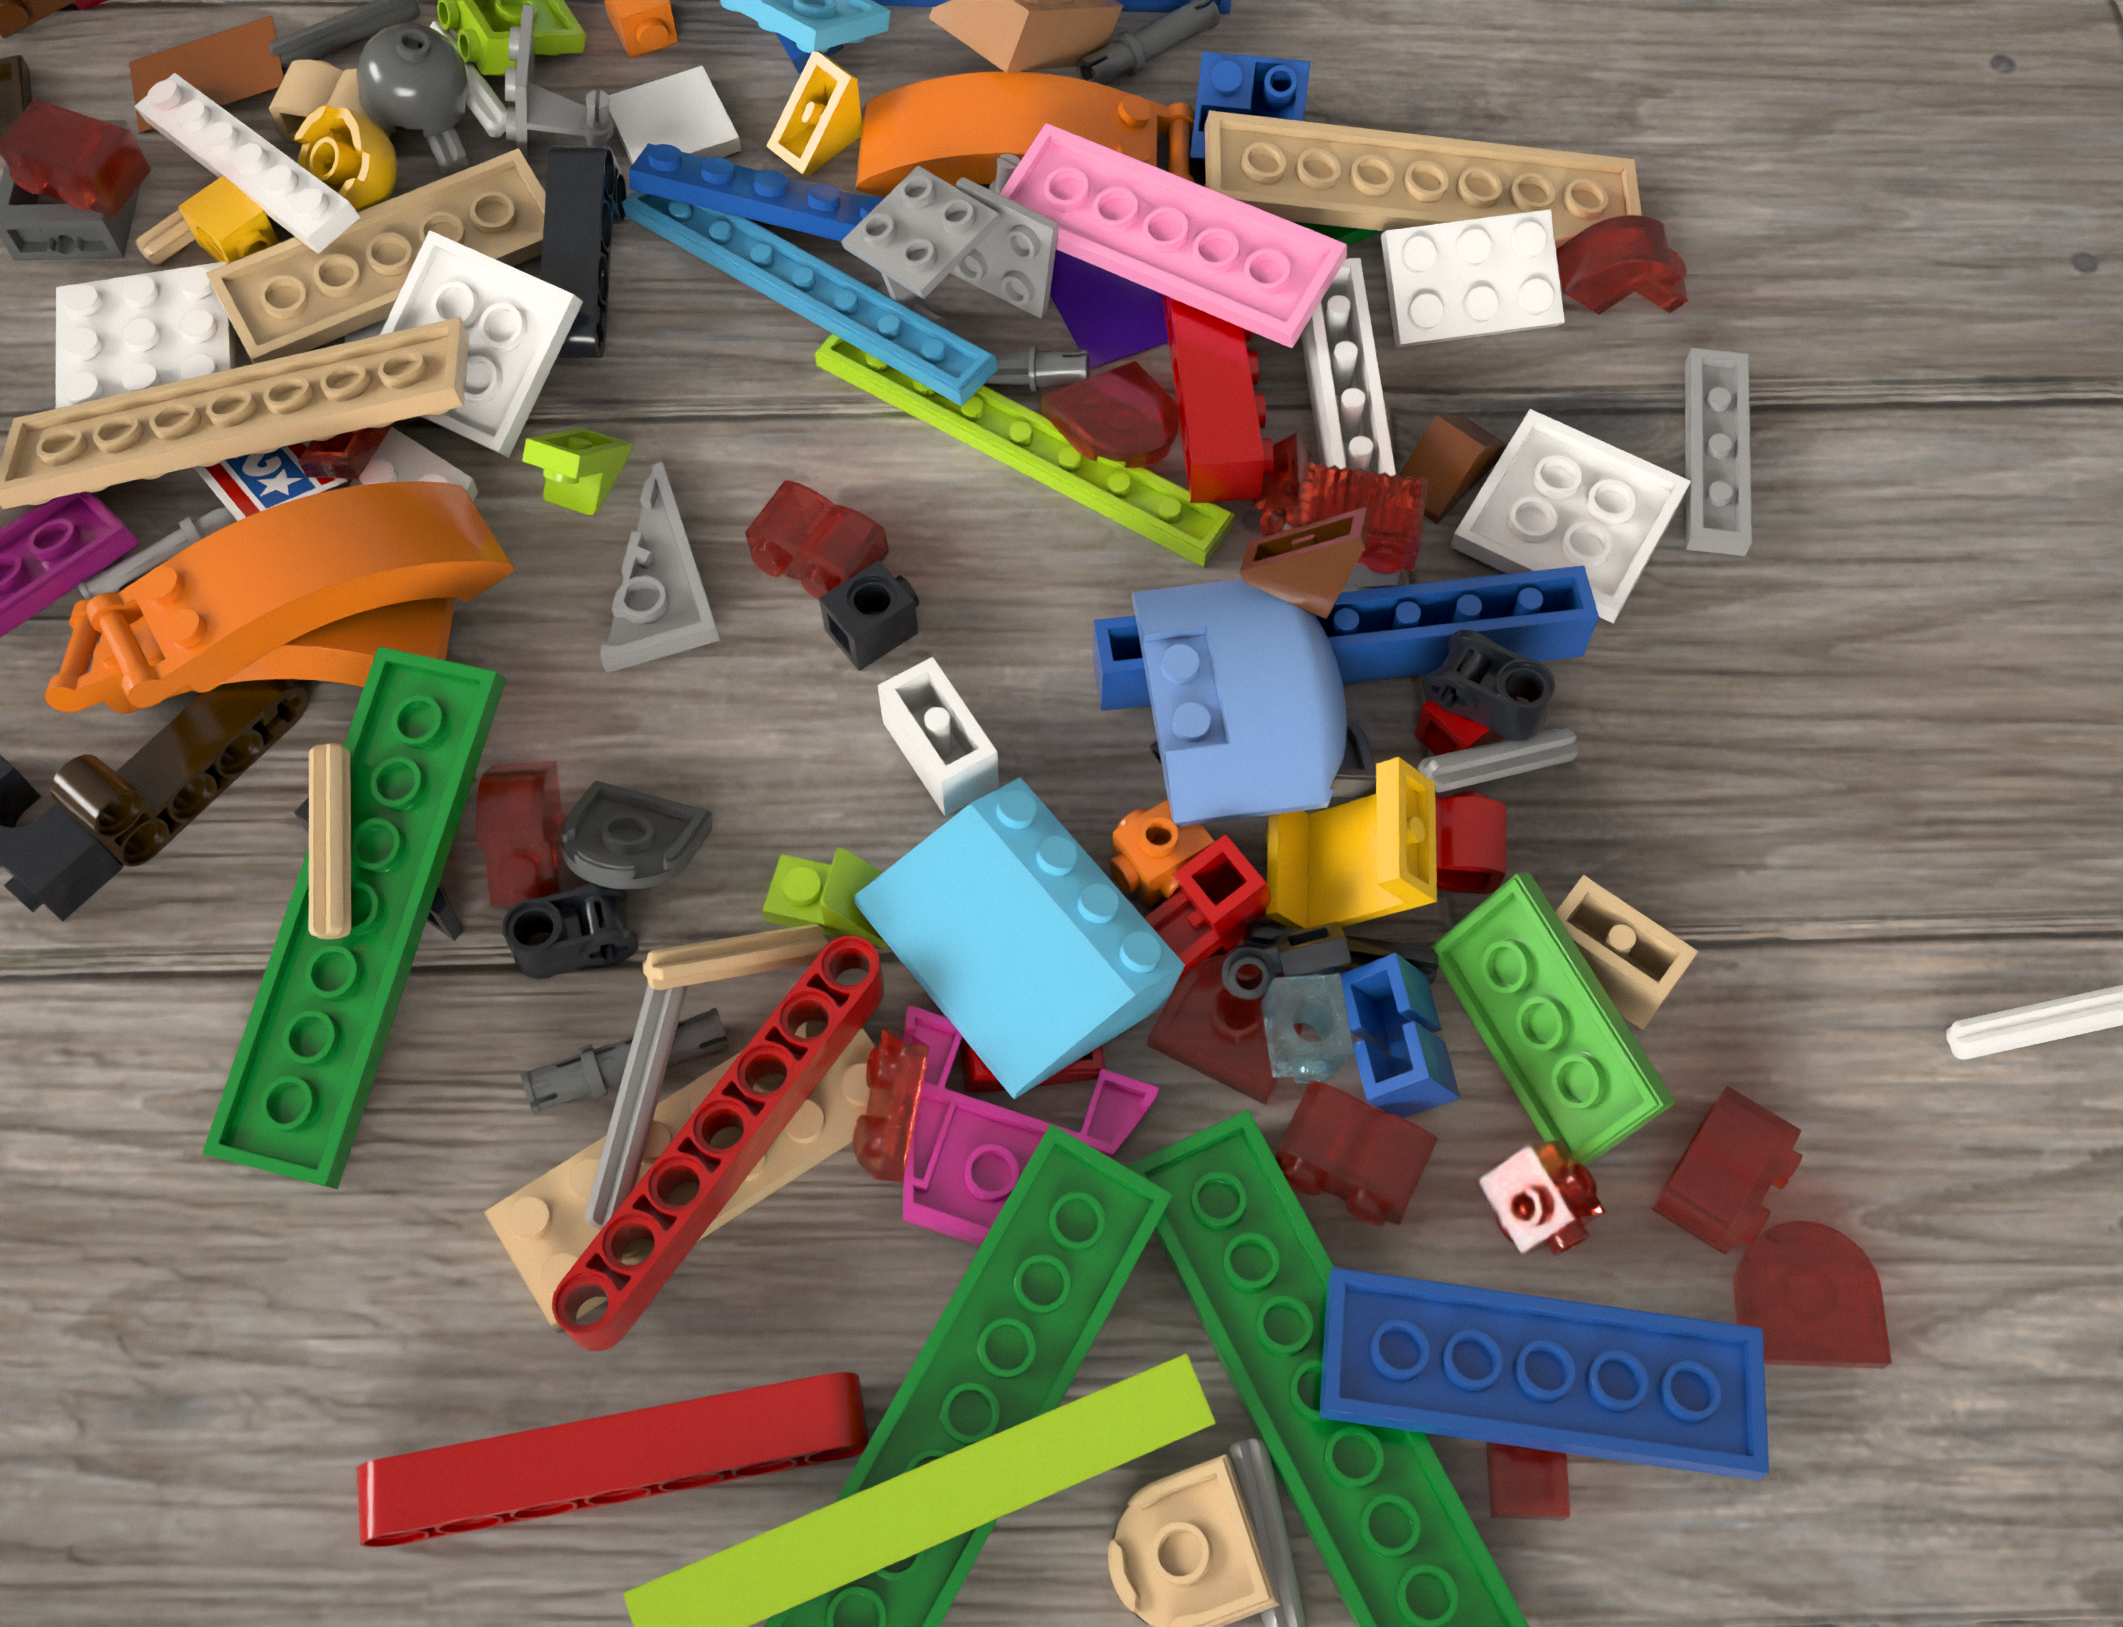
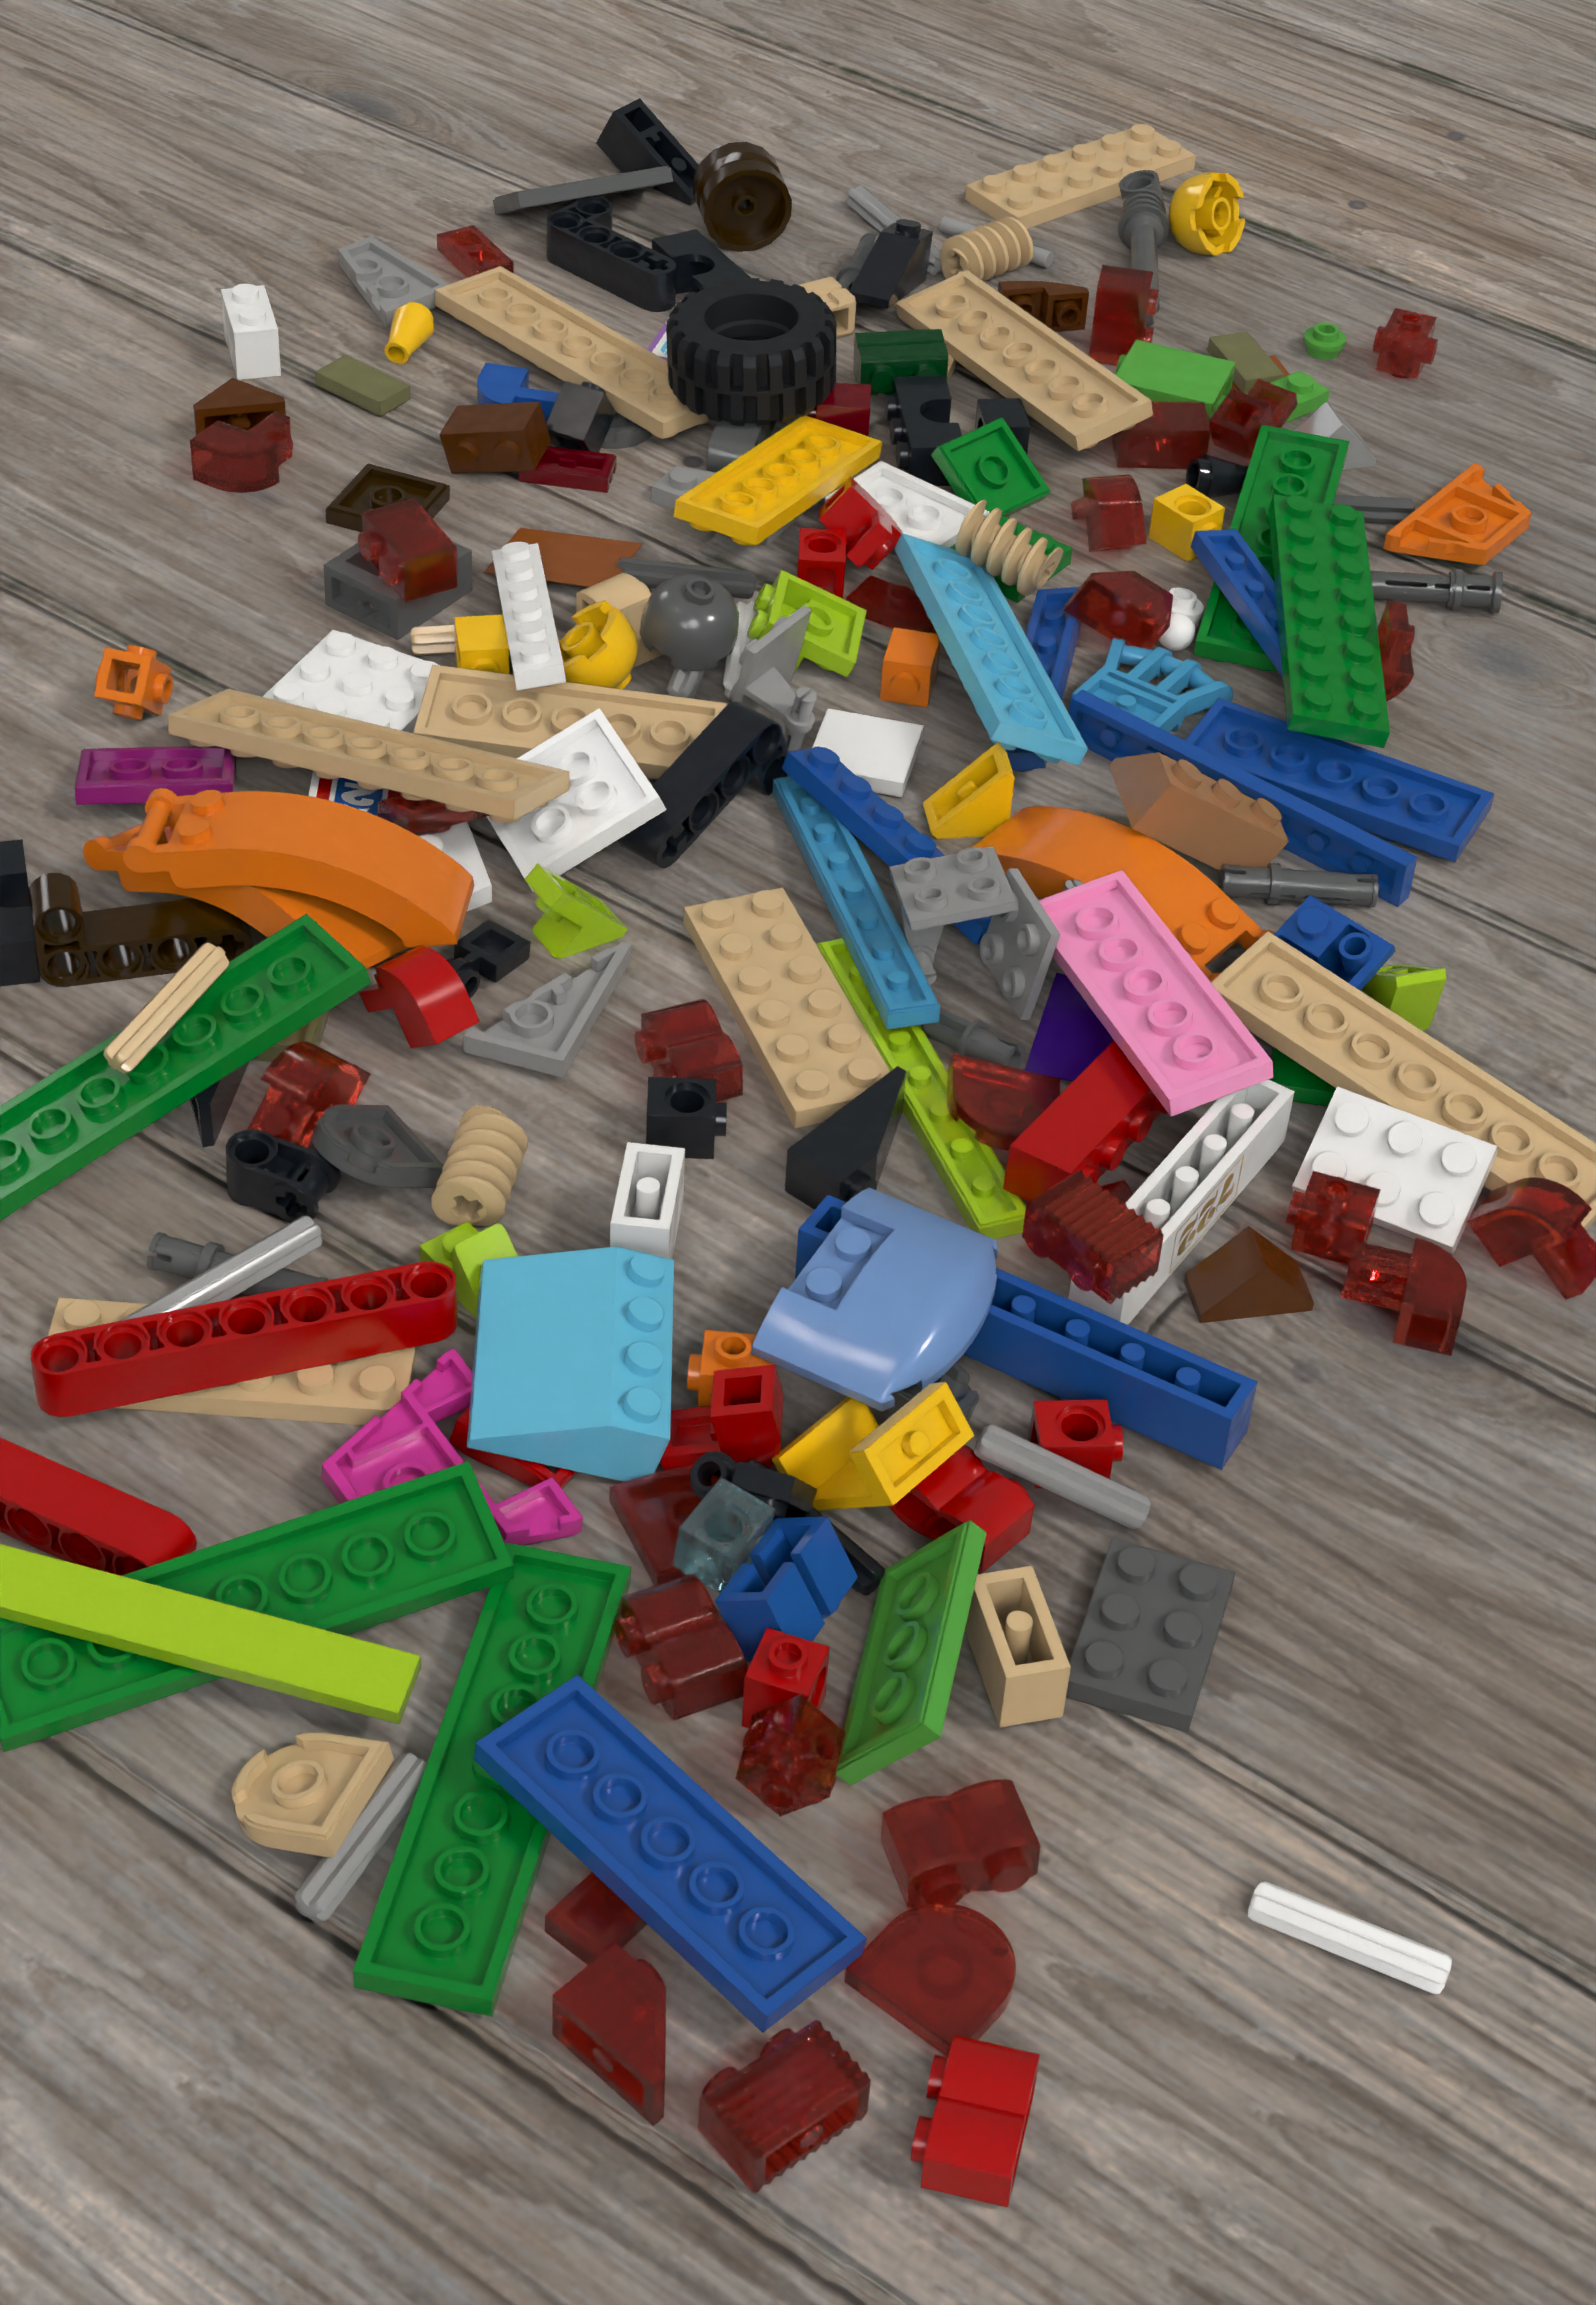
camera: 35 degrees right, 20 degrees down
(533, 645) = (424, 996): none -> red brick
(539, 553) = (488, 952): none -> black plate
(733, 956) = (346, 1234): tan axle -> none
(747, 793) = (479, 1168): none -> tan piece
(845, 432) = (786, 1003): none -> tan plate
(895, 1085) = (395, 1371): clear red plate -> none
(1043, 553) = (849, 1147): none -> black slope
(1308, 561) = (1013, 1237): reddish brown slope -> none
(1337, 92) = (1408, 991): none -> lime slope
(1472, 357) = (1332, 1216): none -> clear red brick
(1473, 1128) = (784, 1669): none -> red brick
(1488, 683) = (1090, 1411): black piece -> none
(1571, 504) = (1319, 1368): white plate -> none
(1588, 378) = (1422, 1285): none -> clear red brick
(1649, 1565) = (617, 2027): none -> clear red slope
(1670, 849) = (1149, 1634): none -> dark grey plate
(1717, 452) = (1489, 1402): light grey plate -> none
(1823, 1530) = (783, 2104): none -> clear red brick
(1969, 1417) = (978, 2120): none -> red brick

